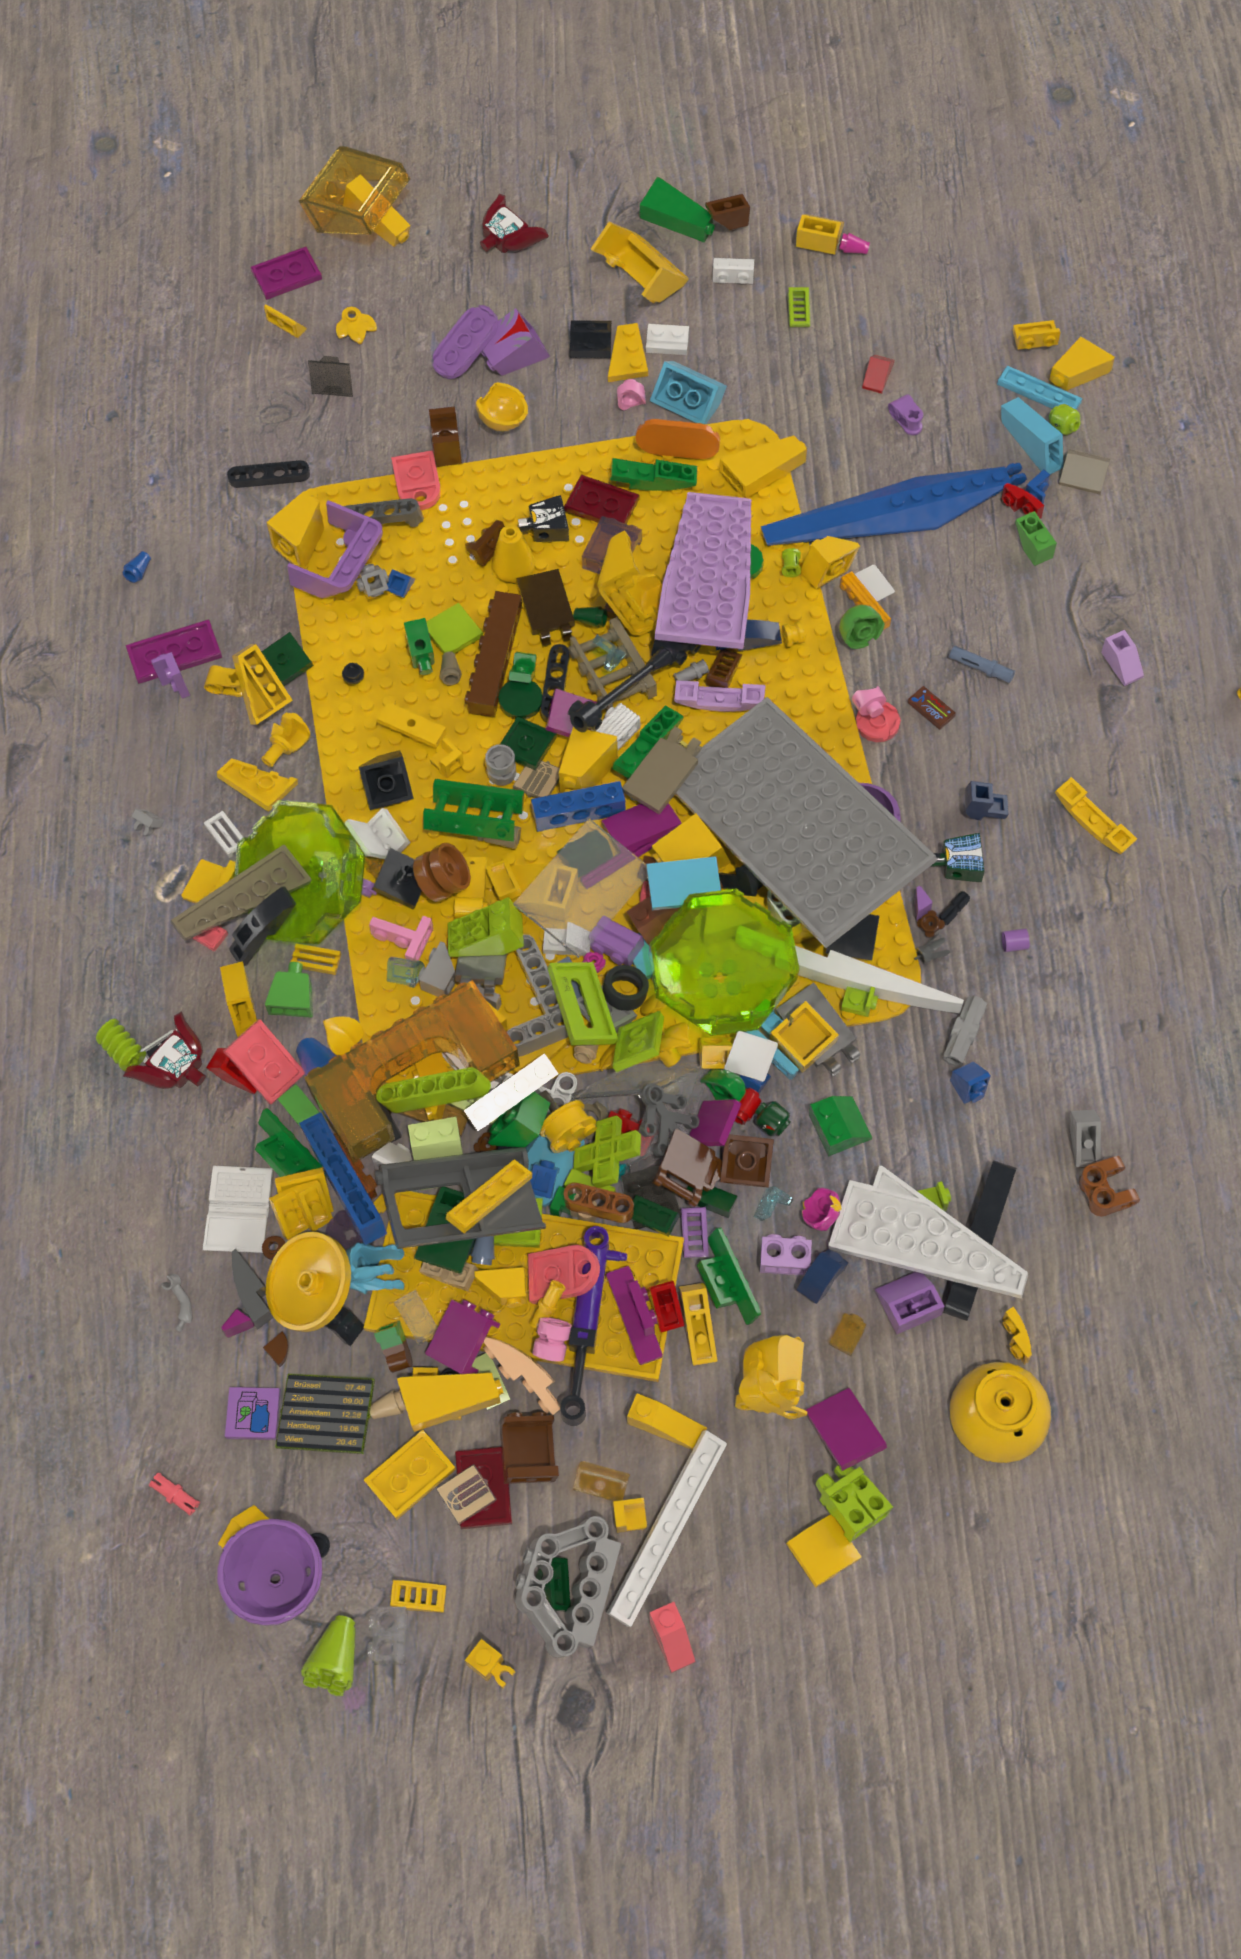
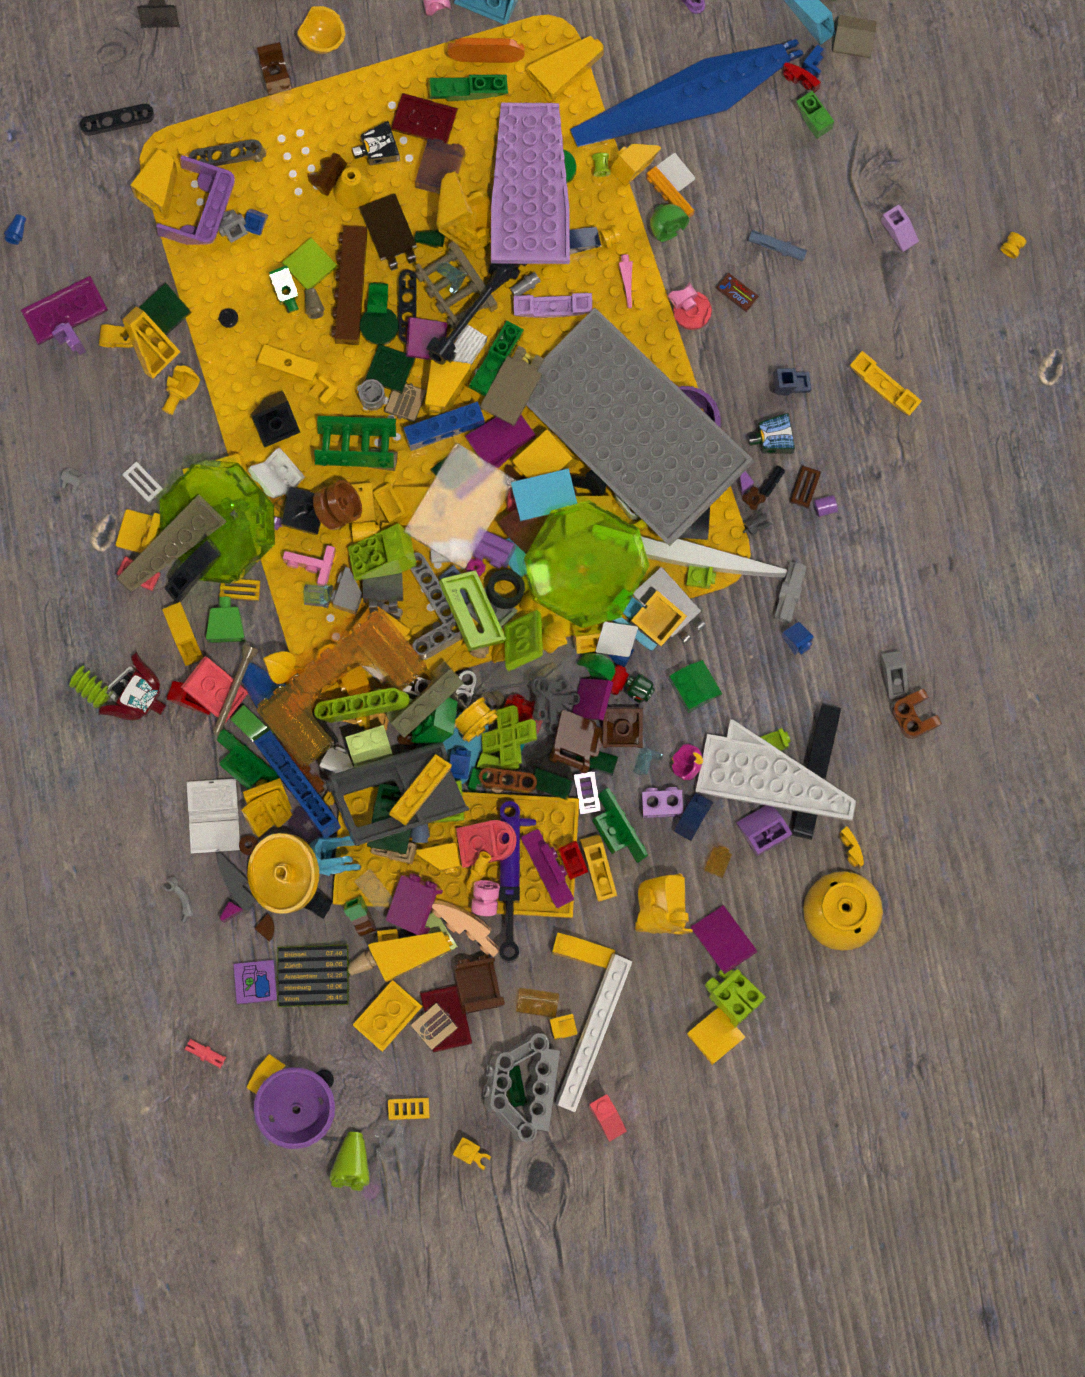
camera: 10 degrees left, 15 degrees up
(255, 784) = (162, 433): yellow wing -> none
(310, 1025) = (248, 654): none -> dark tan piece
(416, 477) = (253, 112): coral tile -> none
(717, 681) = (549, 291): reddish brown slope -> none
(807, 669) = (626, 272): none -> bright pink piece
(985, 934) = (800, 502): none -> reddish brown tile

